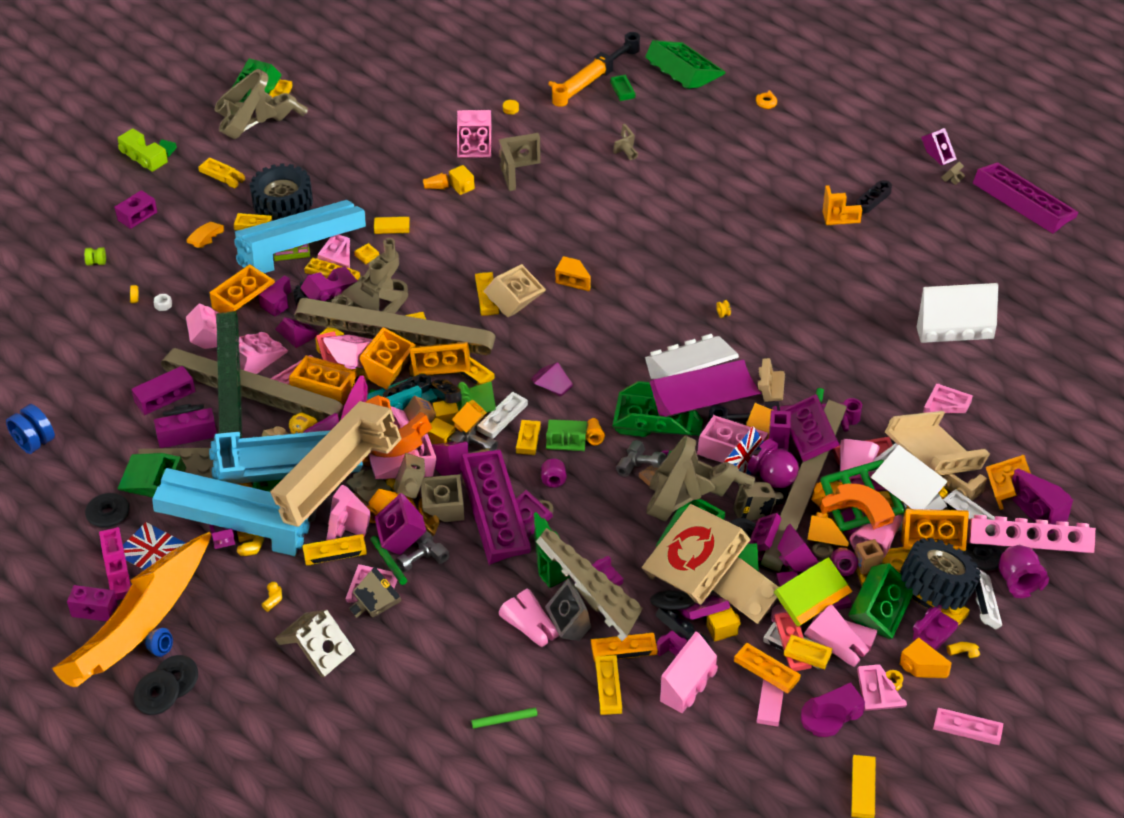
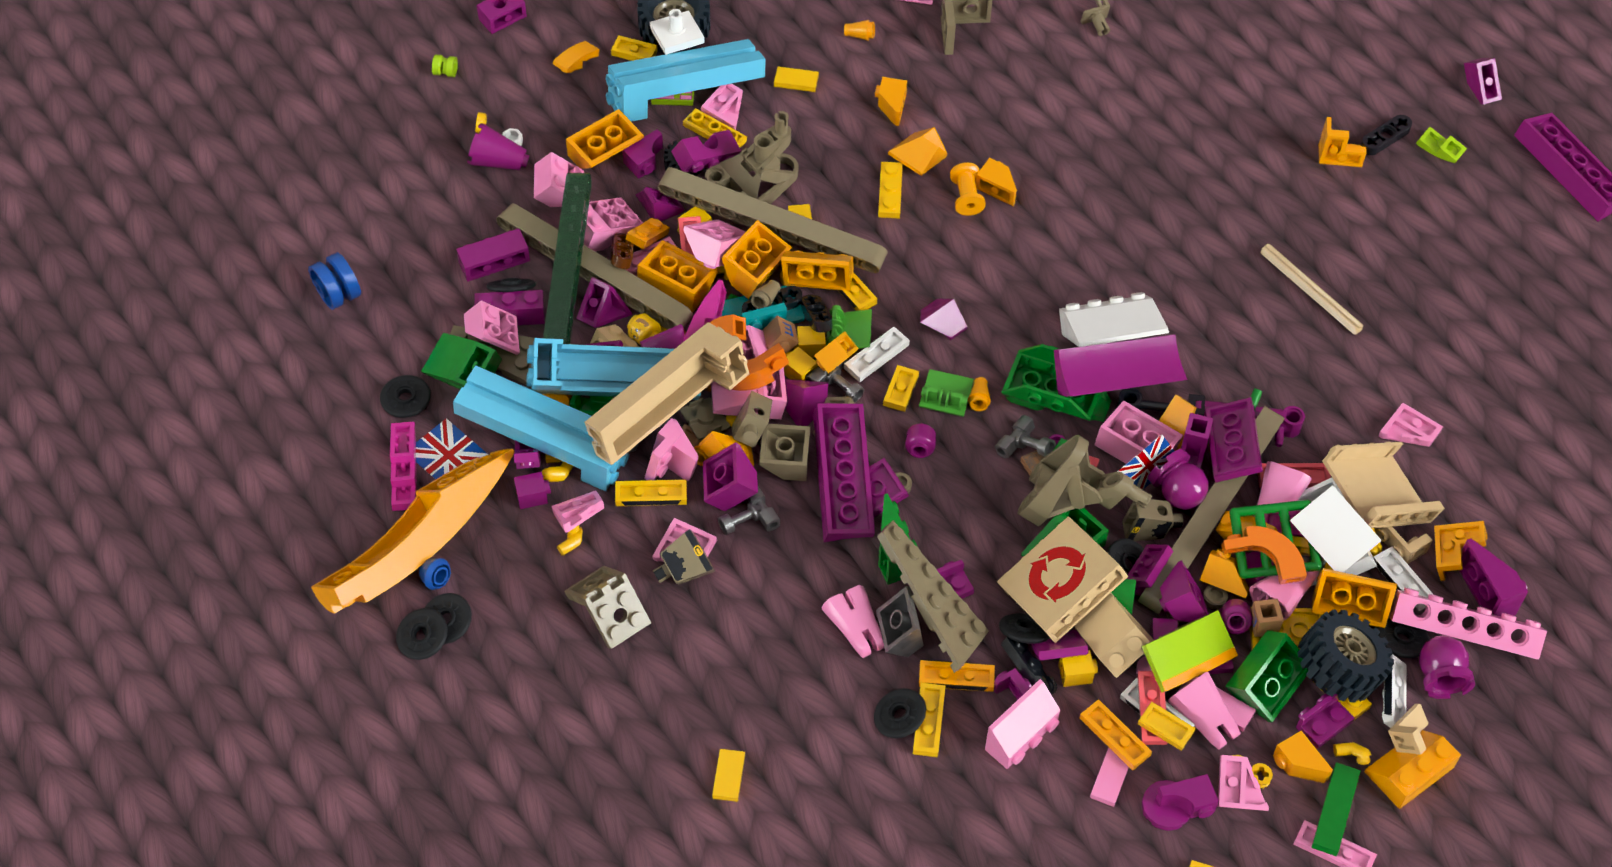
camera: 10 degrees right, 10 degrees up
(92, 603) = (369, 511): magenta brick -> none
(151, 311) = (496, 150): none -> magenta cone
(174, 441) = (493, 326): none -> bright pink slope
(231, 563) = (531, 490): none -> magenta brick
(264, 413) = (601, 305): none -> magenta slope
(273, 369) = (621, 252): none -> reddish brown beam
(274, 572) = (577, 510): none -> bright pink wing
(287, 199) = (676, 31): none -> white tile
(291, 354) = (647, 233): none -> light orange plate
(366, 253) = (759, 112): yellow tile -> none
(389, 560) = (709, 519): green bar -> none
(400, 382) = (765, 295): none -> dark tan cone
(431, 522) = (764, 477): pearl gold piece -> none
(446, 758) = (728, 775): none -> yellow tile
(461, 179) = (890, 32): yellow brick -> none
(473, 226) = (891, 98): none -> light orange slope
(504, 259) = (920, 151): none -> light orange slope
(506, 717) = (804, 737): bright green bar -> none
(514, 290) = (922, 192): tan slope -> none
(554, 291) = (965, 177): none -> light orange piece
(571, 680) = (907, 724): none -> black wheel
(722, 308) = (1166, 258): yellow bush -> none
(771, 382) = (1203, 366): tan bracket -> none
(843, 314) = (1312, 289): none -> tan axle
(922, 200) = (1437, 145): none -> lime slope
(954, 174) = (1493, 118): dark tan tile -> none
(958, 313) = (1450, 316): white slope -> none
(961, 694) = (1336, 809): none -> green tile
(1005, 623) = (1406, 731): none -> tan bracket
(1015, 651) = (1407, 775): none -> light orange slope

